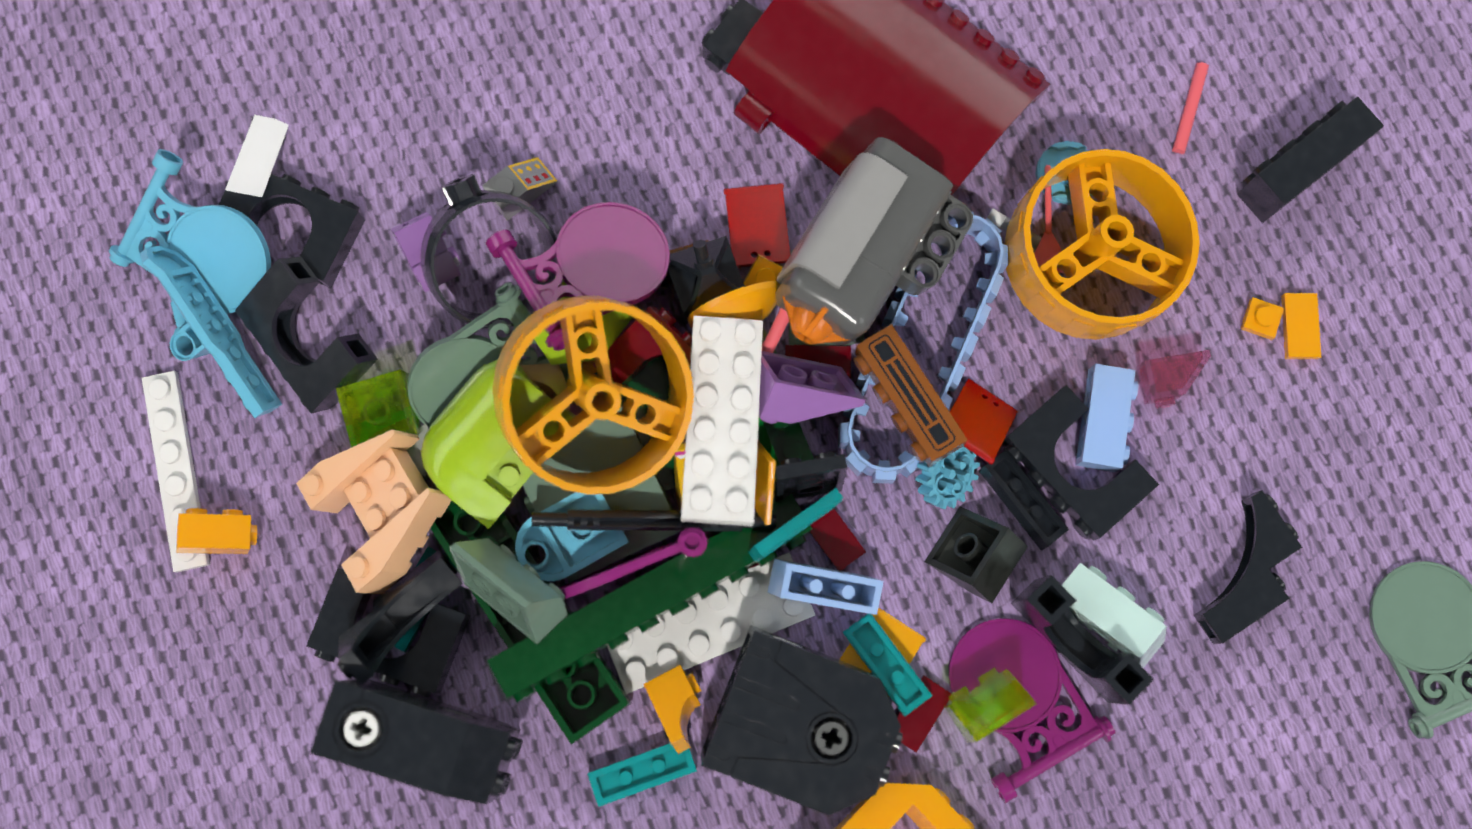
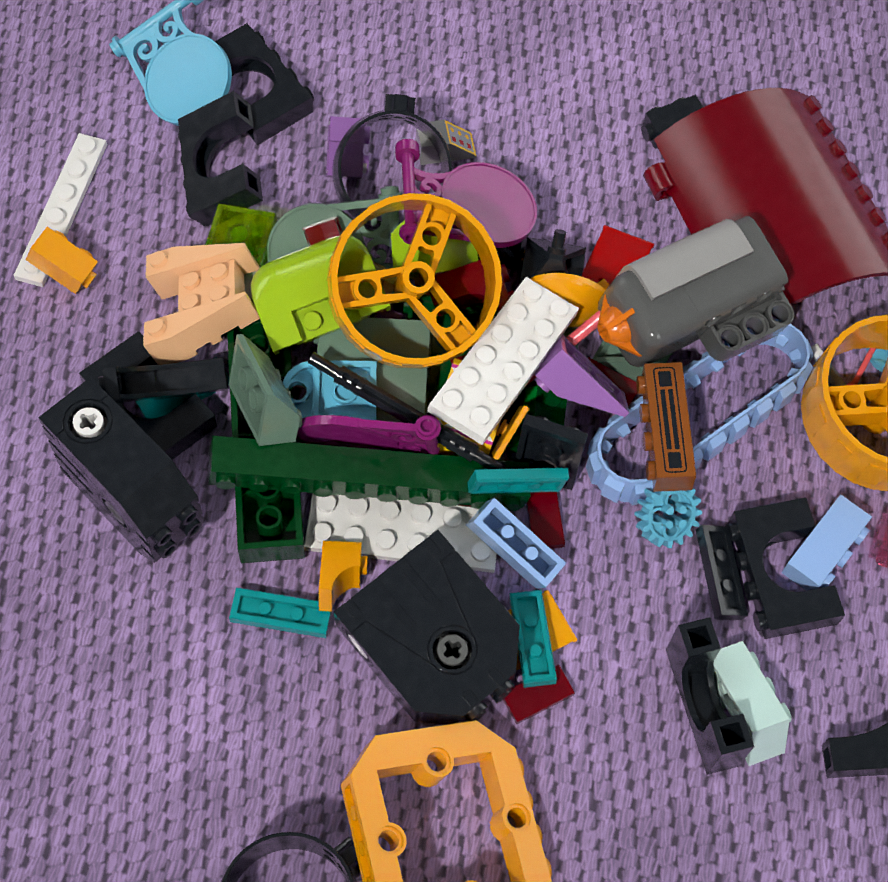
camera: 25 degrees right, 15 degrees down
(207, 329) = (149, 123): medium azure piece -> none
(257, 156) = (261, 27): white sticker -> none
(462, 368) = (322, 230): none -> dark red piece
(977, 553) = (658, 593): pearl dark grey slope -> none
(982, 419) = (719, 489): red container -> none
(988, 705) = (600, 709): clear neon green slope -> none
(1037, 668) = (632, 710): magenta piece -> none

